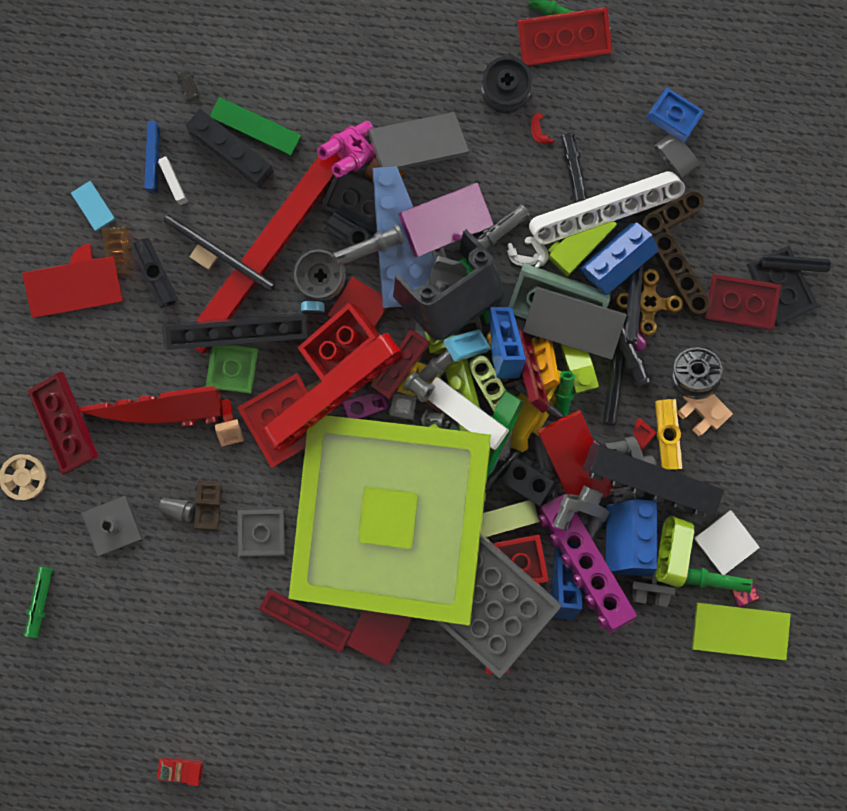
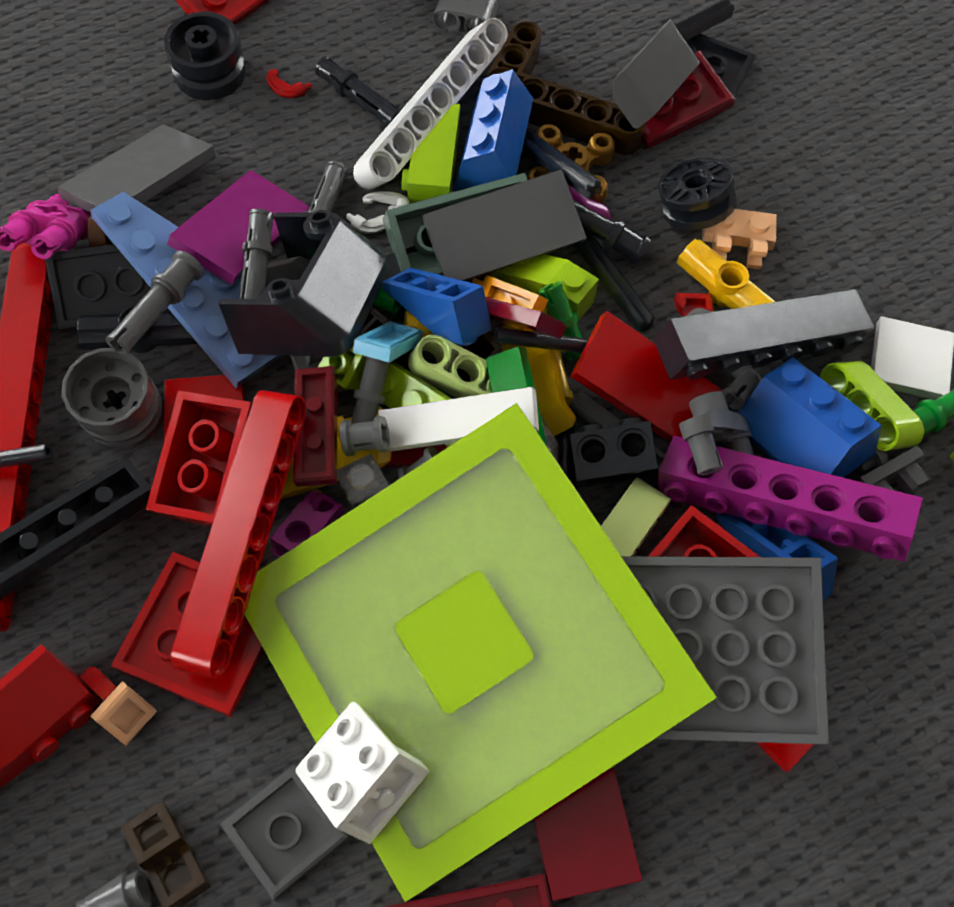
camera: 40 degrees left, 20 degrees down
(232, 368) = (68, 616): bright green tile -> none
(305, 536) = (359, 774): none -> white bracket
(312, 307) = (137, 449): medium azure tile -> none
(435, 253) = (257, 253): none -> dark grey pin
(731, 291) = (653, 75): none -> dark grey piece

